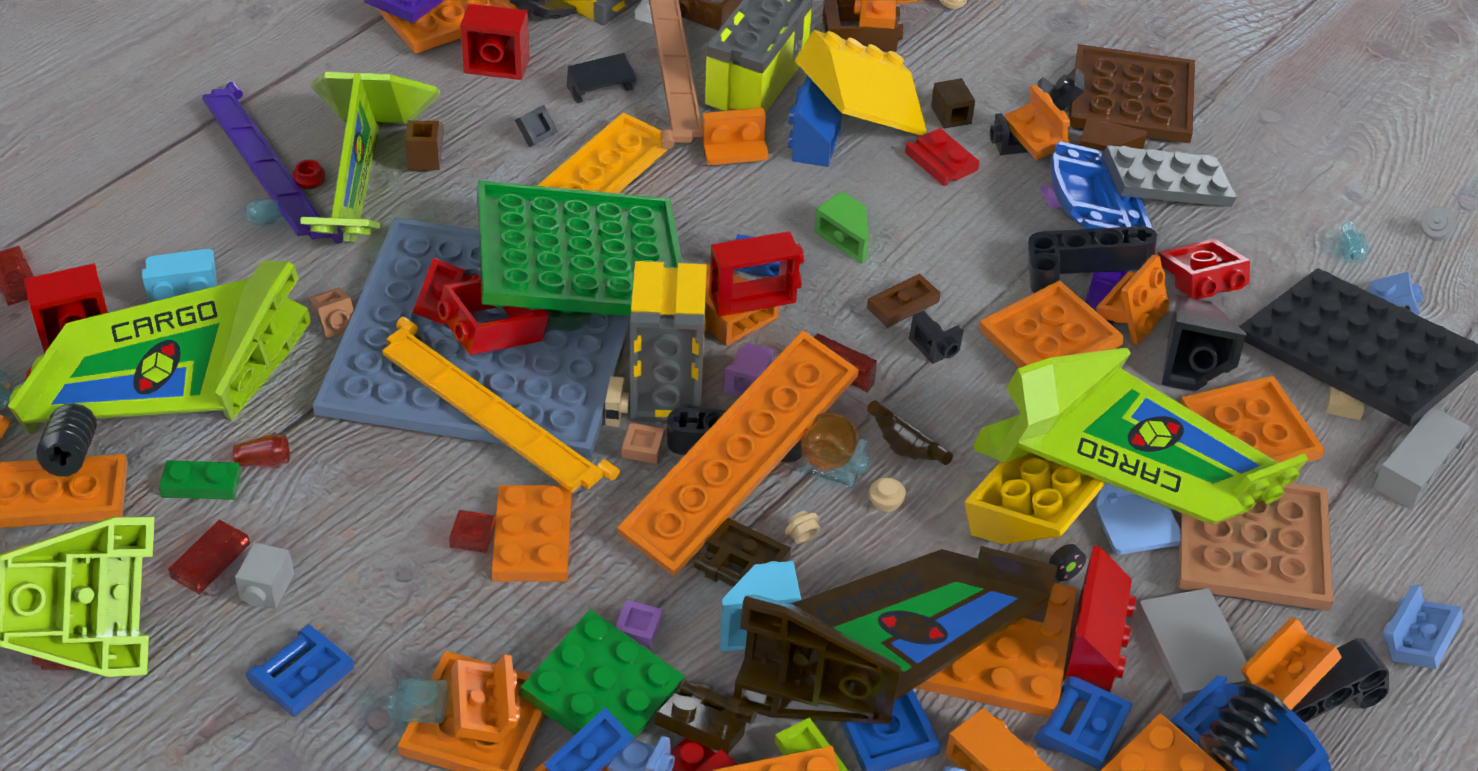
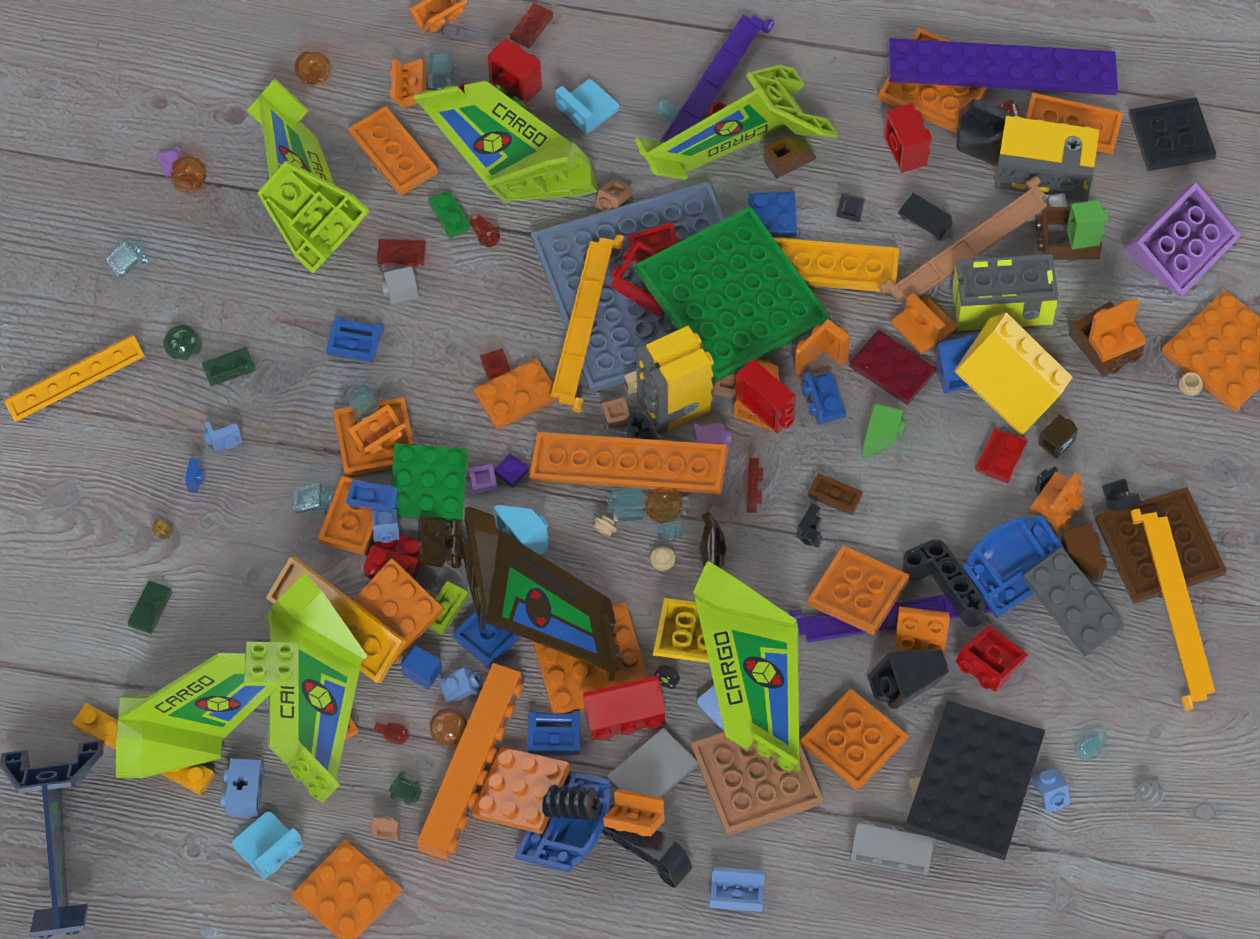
camera: 65 degrees right, 15 degrees up
(66, 439) = (419, 136): black piece -> none
(462, 193) = (776, 212): none -> blue plate
(645, 587) = (511, 470): none -> dark purple plate
(708, 211) = (824, 338): none -> orange bracket
(742, 547) = (570, 506): dark brown plate -> none
(766, 187) = (892, 367): none -> dark red plate
(786, 489) = (626, 504): none -> clear light blue brick
(1220, 108) = (1178, 607): none -> light orange piece

